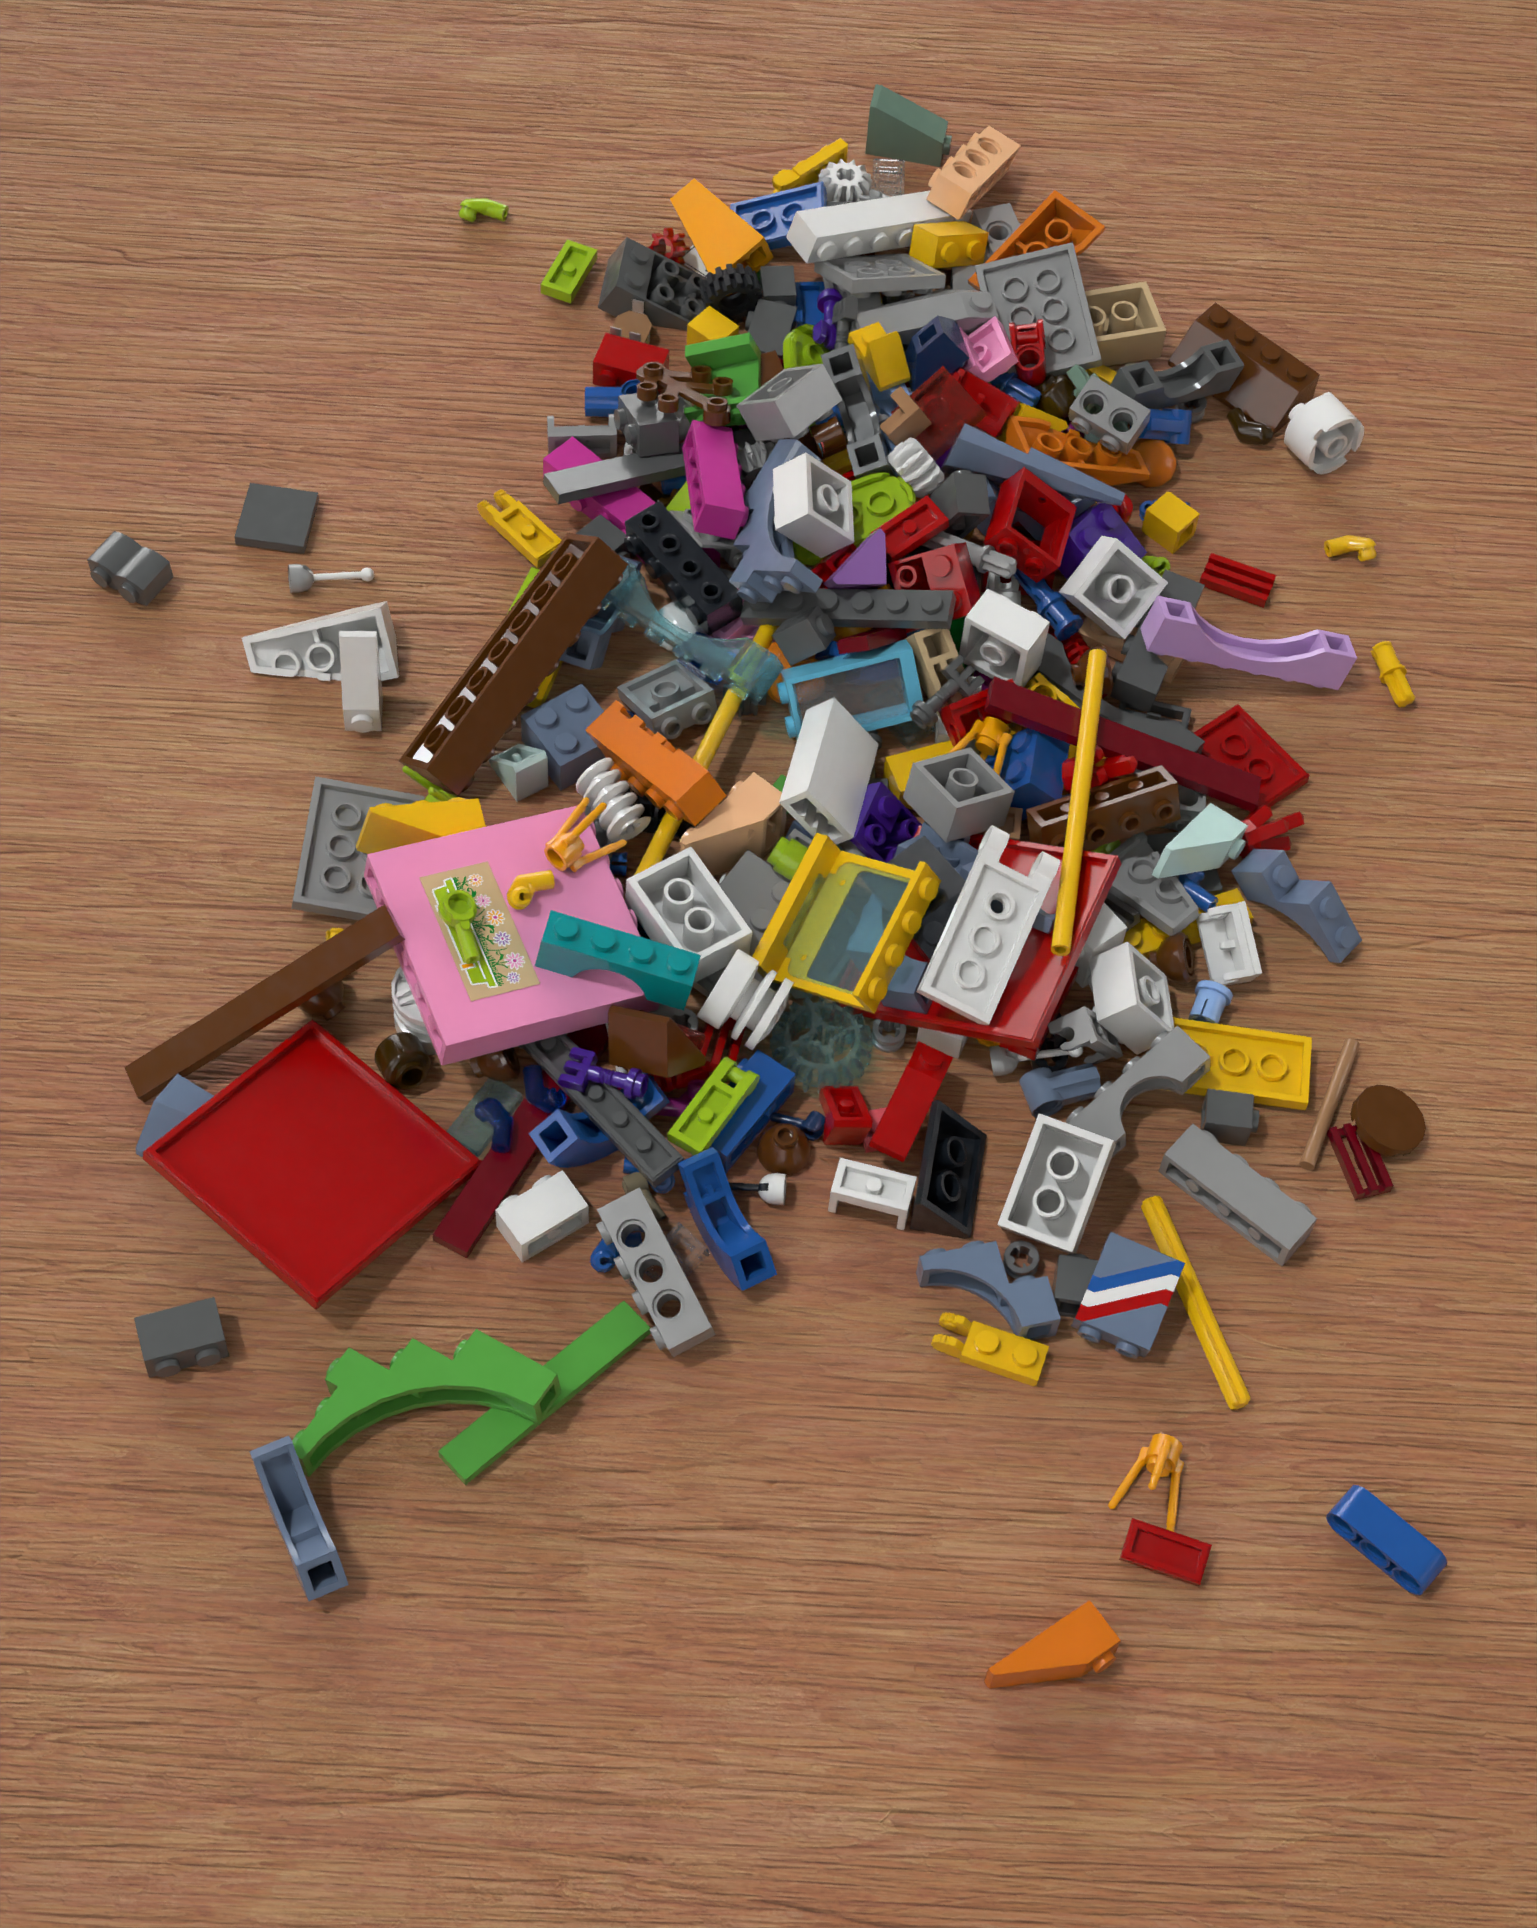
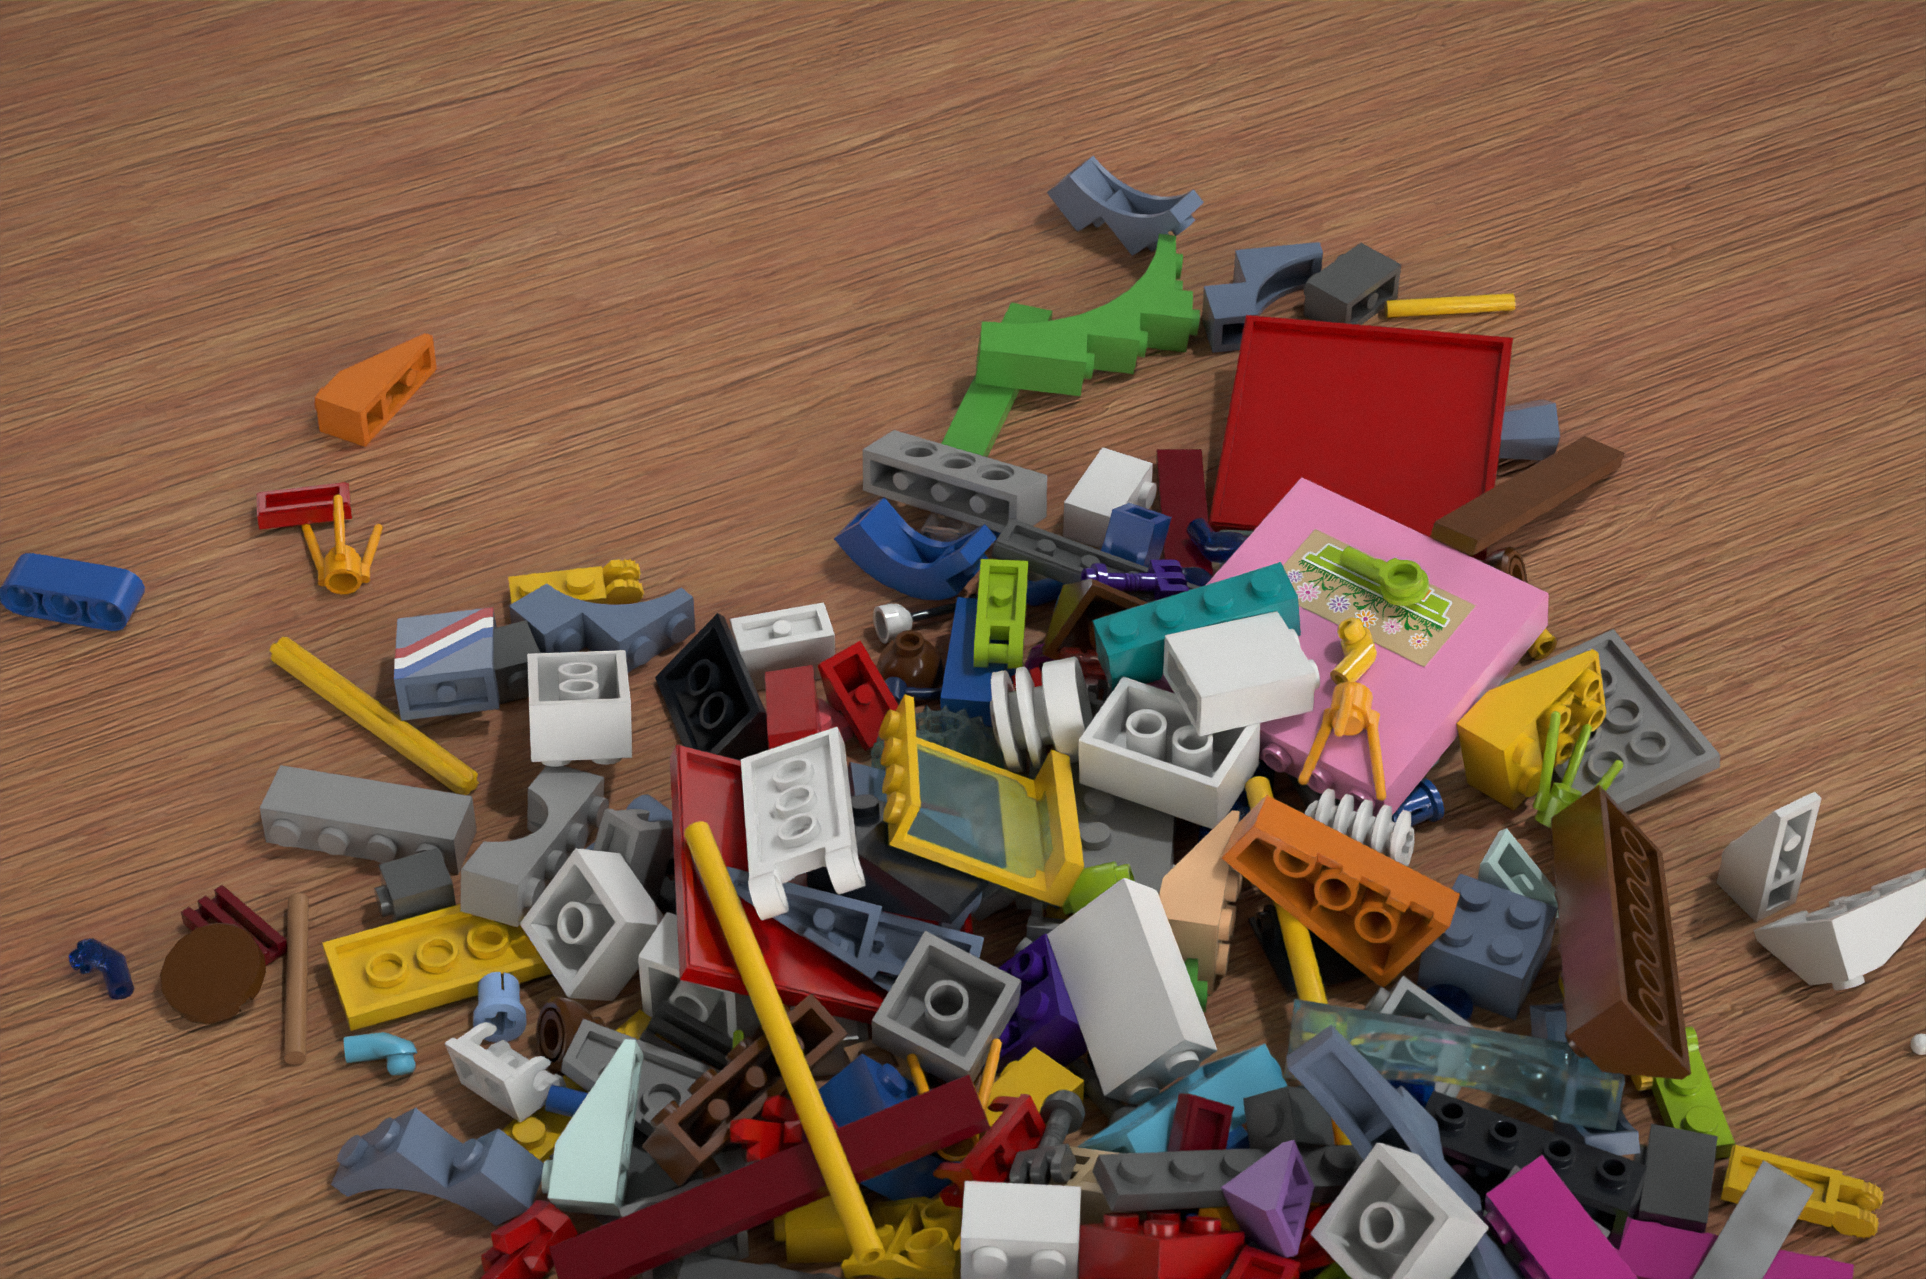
camera: 155 degrees right, 15 degrees down
(105, 1291) = (1449, 305): none -> yellow bar
(244, 1392) = (1258, 281): none -> sand blue arch
(622, 895) = (1240, 673): none -> white brick
(1291, 1016) = (379, 1046): none -> medium azure arm
(1455, 1174) = (112, 963): none -> clear blue arm

